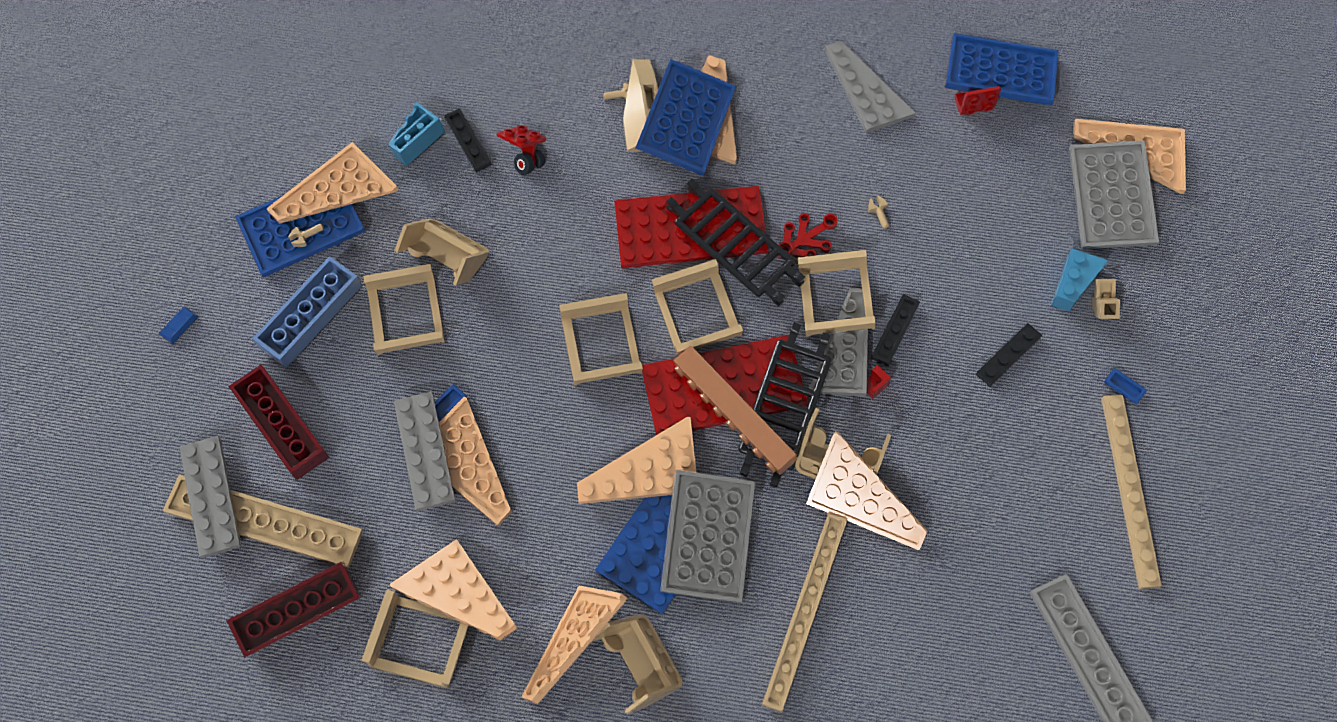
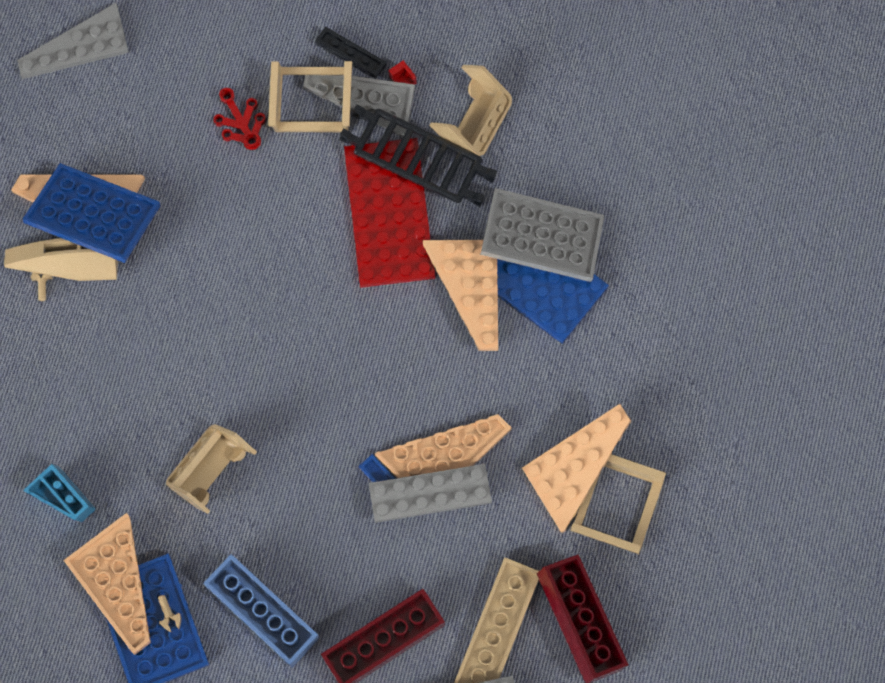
camera: 85 degrees left, 5 degrees up
(397, 279) = (277, 543): tan piece -> none
(467, 140) = (74, 442): black plate -> none
(526, 140) = (90, 377): red plate -> none
(580, 624) = (623, 356): light nougat wing -> none
(596, 307) = (330, 350): tan piece -> none
(644, 657) = (652, 302): tan windscreen -> none
(651, 237) = (211, 228): red plate -> none
(687, 277) = (335, 195): tan piece -> none
(735, 411) = (421, 198): nougat brick -> none
(766, 288) = (287, 130): black bar -> none
(804, 613) = (615, 163): tan plate -> none
(856, 493) = (513, 103): light nougat wing -> none
(879, 211) = (219, 51): tan bar -> none

